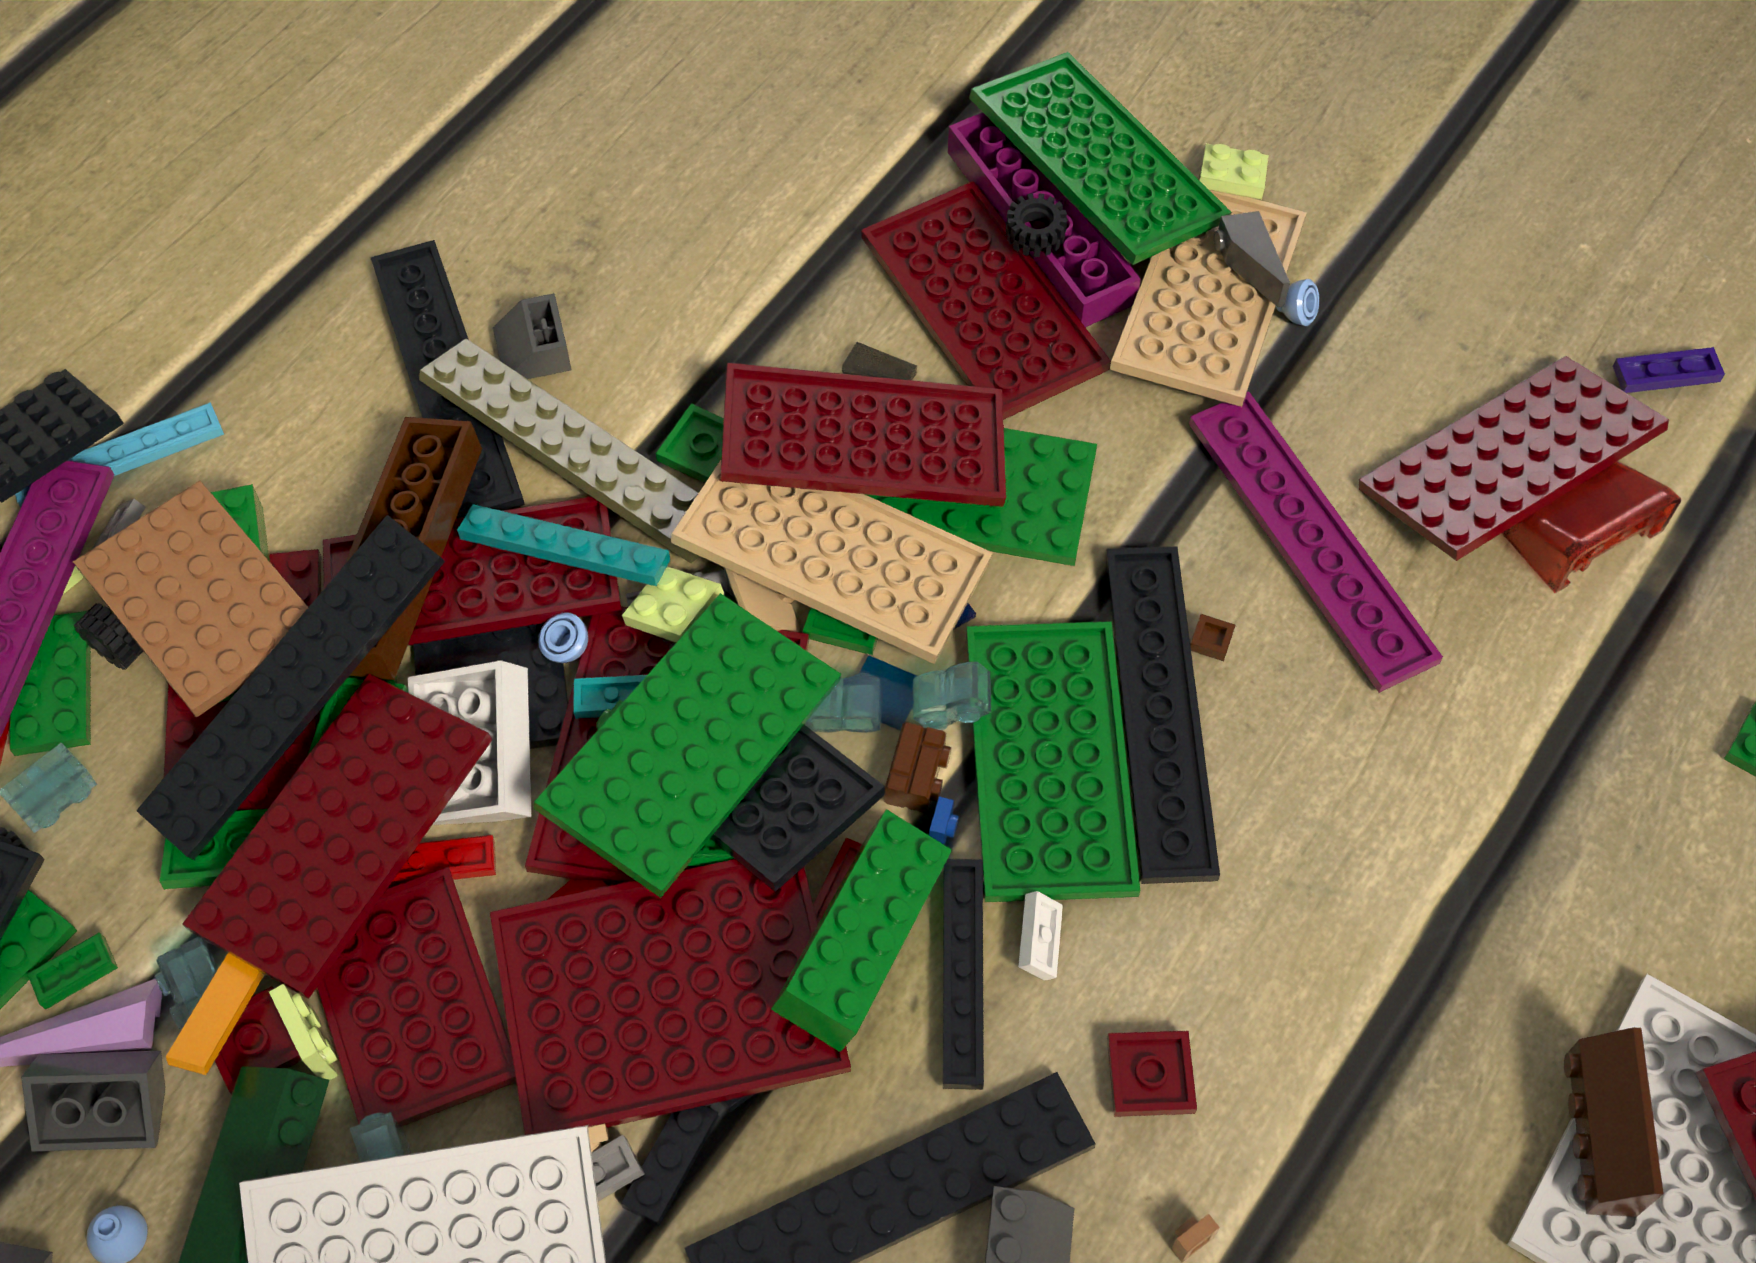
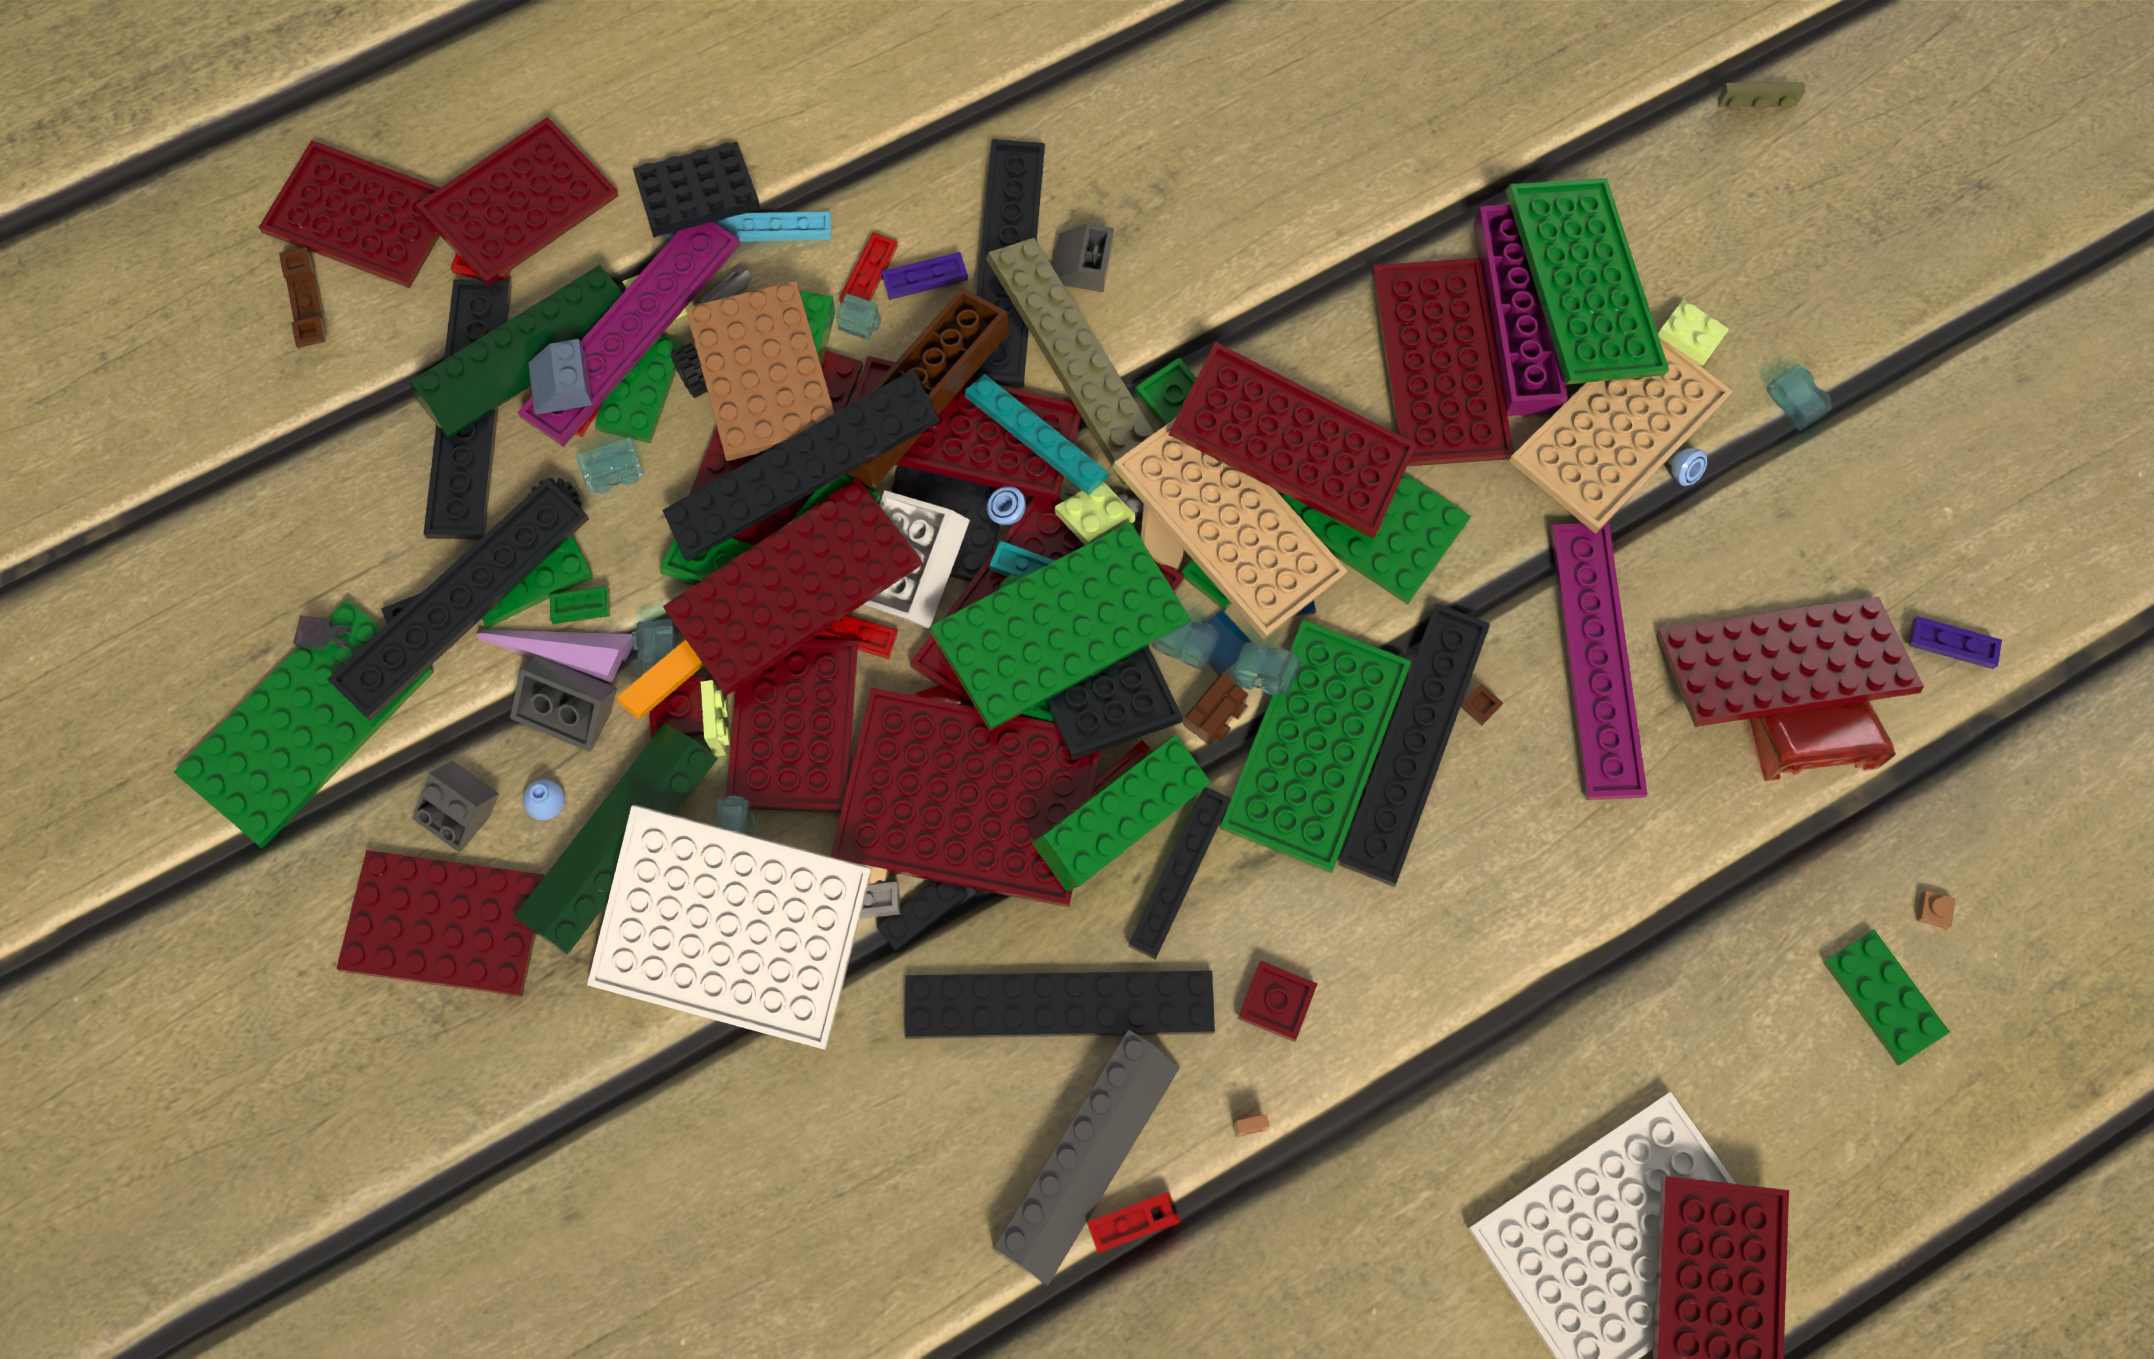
camera: 20 degrees right, 10 degrees up
(284, 451) = (868, 269): none -> red tile
(292, 502) = (858, 316): none -> clear light blue brick
(353, 429) = (924, 275): none -> dark purple plate
(875, 363) = (1334, 384): clear smoke tile -> none
(944, 821) = (1216, 759): blue plate -> none
(1036, 210) = (1509, 307): black tyre -> none
(1040, 936) = (1246, 870): white plate -> none
(1252, 254) = (1666, 410): dark grey slope -> none
(1376, 192) = (1799, 397): none -> clear light blue brick
(1613, 1124) = (1581, 1182): reddish brown slope -> none

